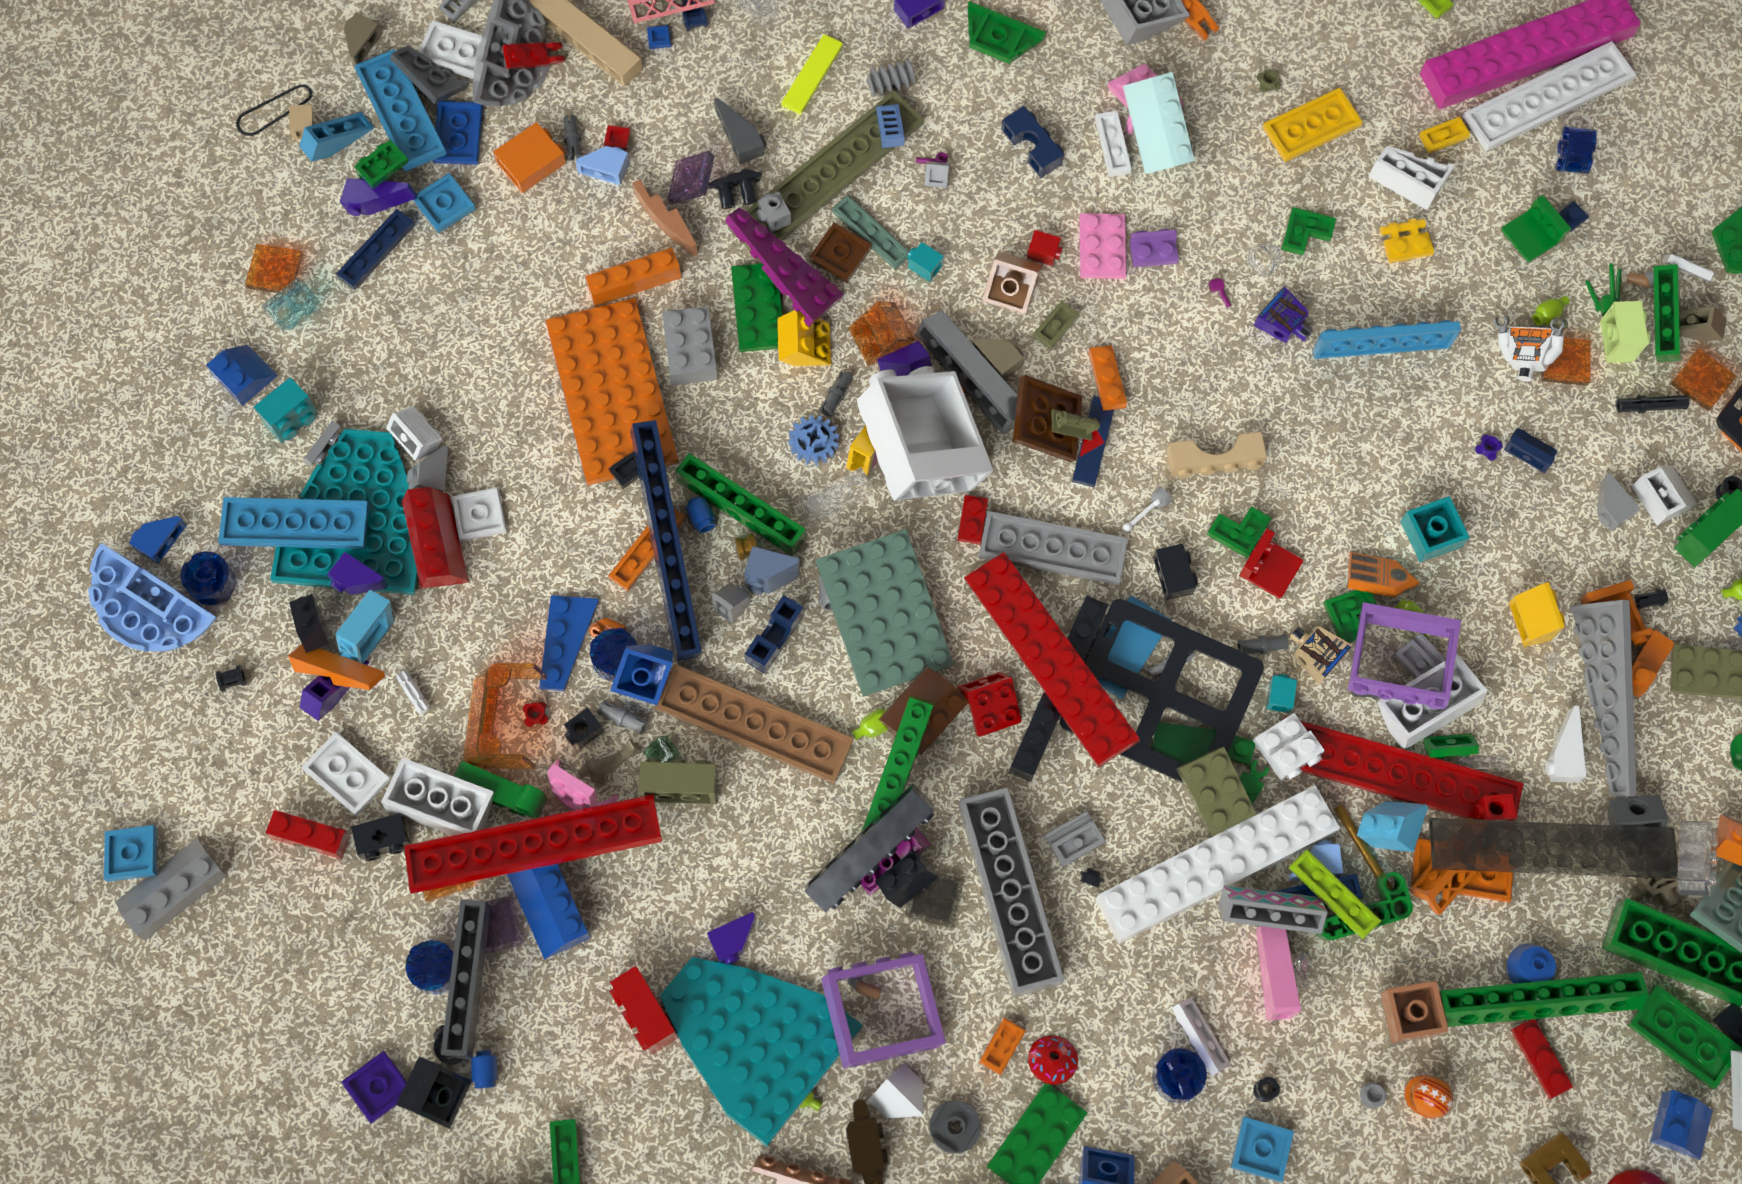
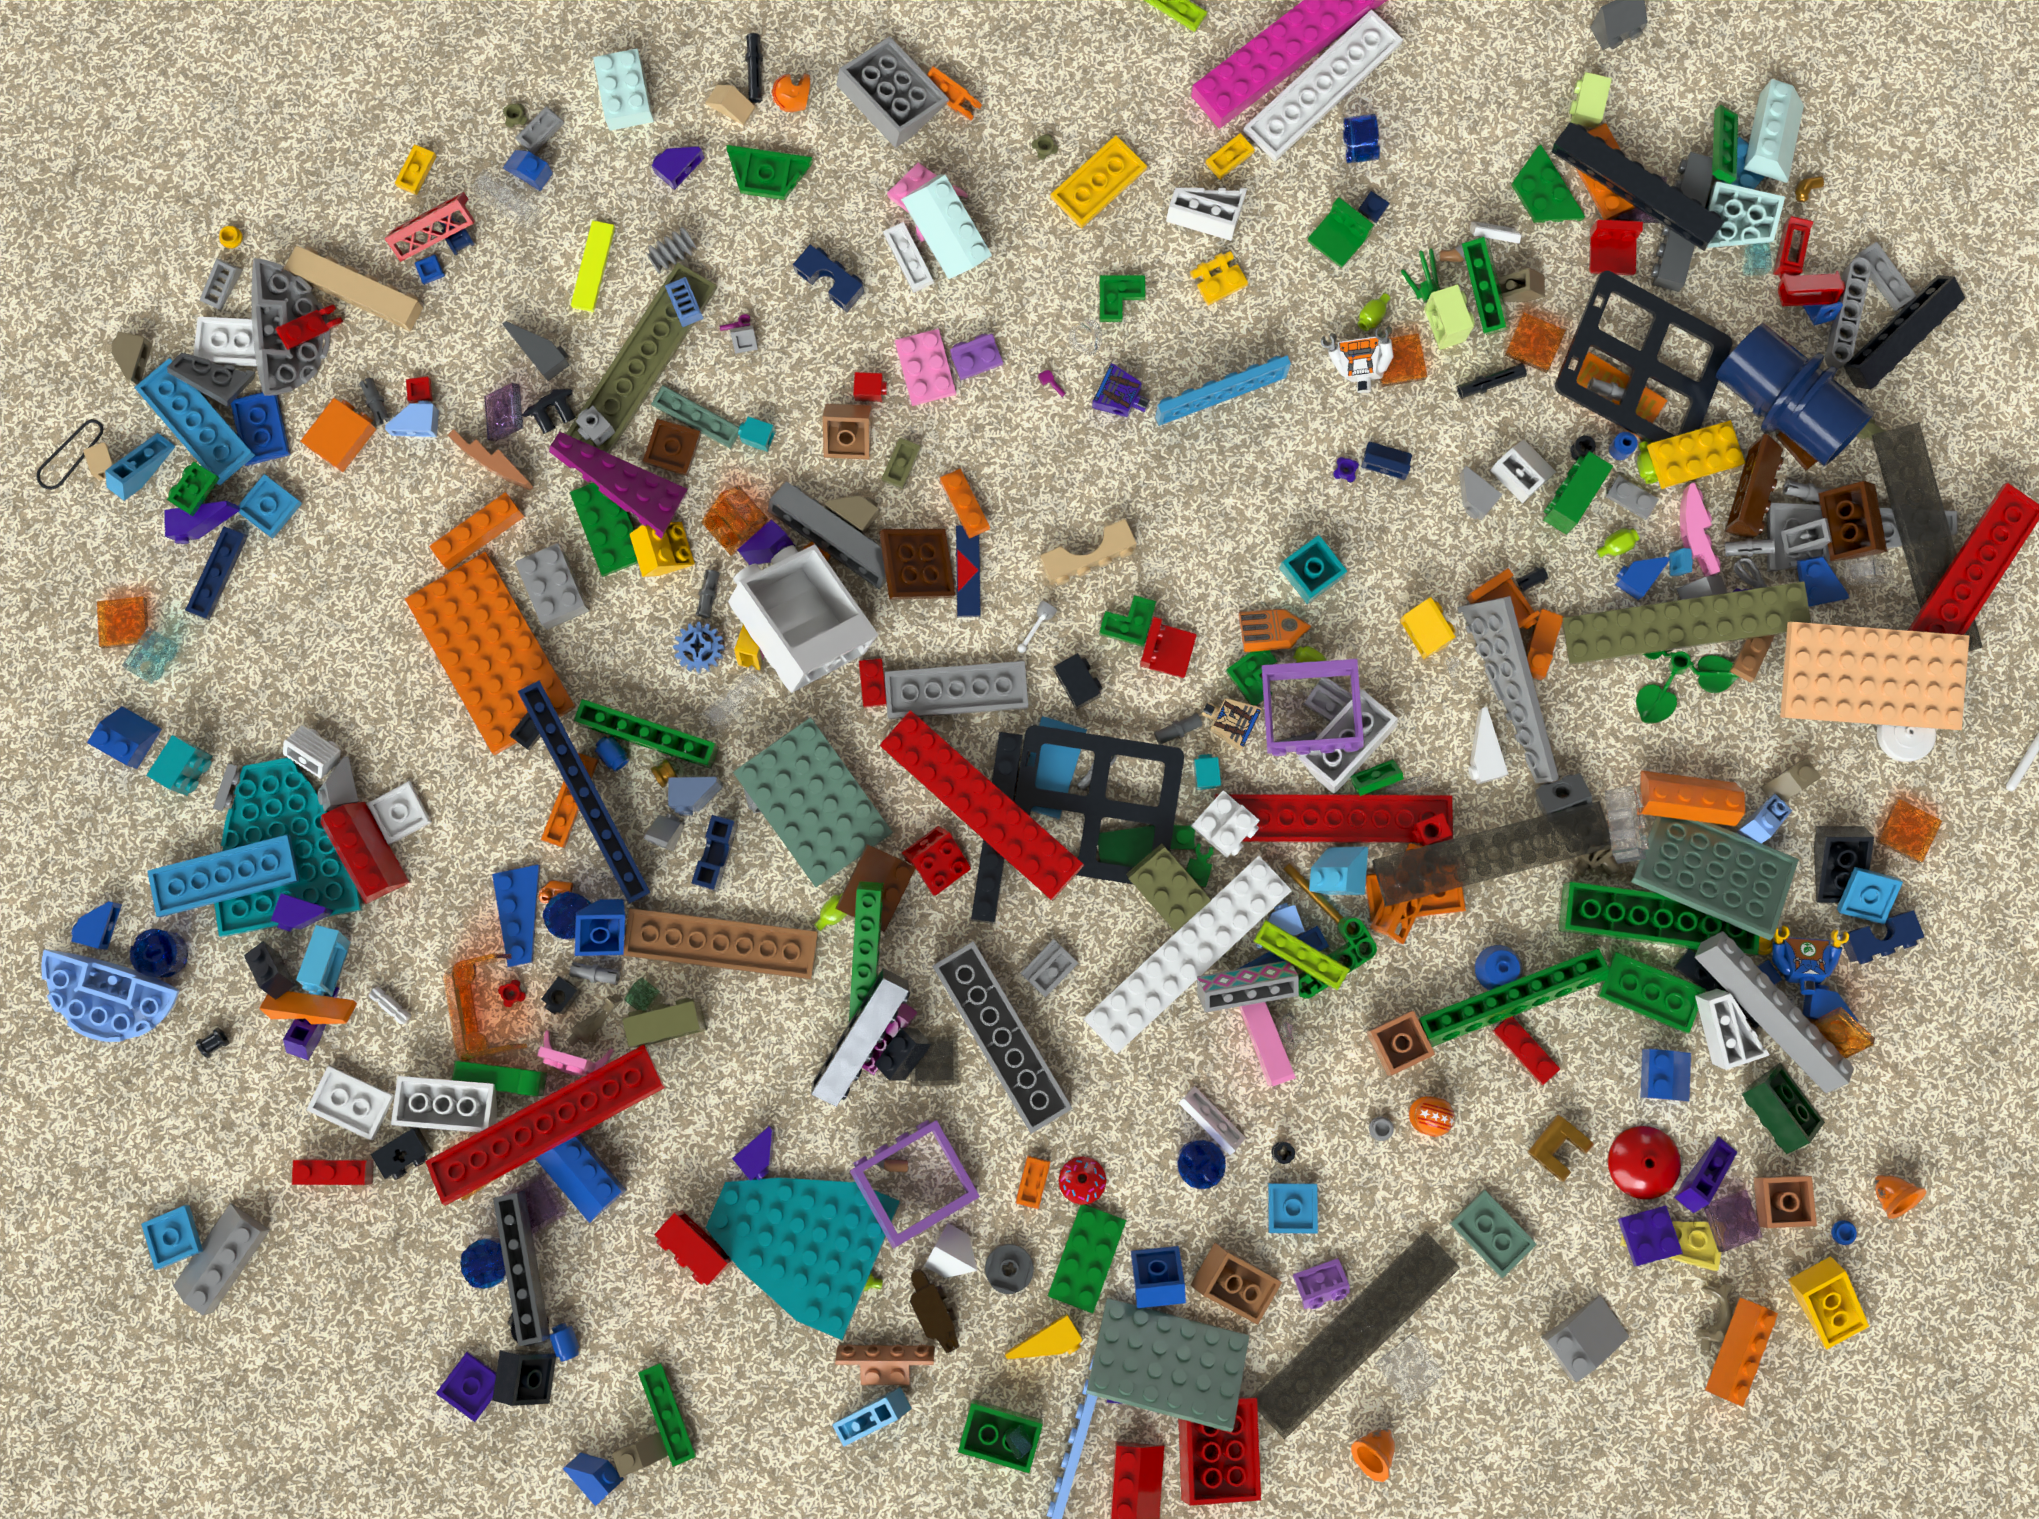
camera: 10 degrees left, 10 degrees up
(1073, 424) = (943, 563): olive hinge -> none
(1091, 877) = (1074, 1000): black plate -> none

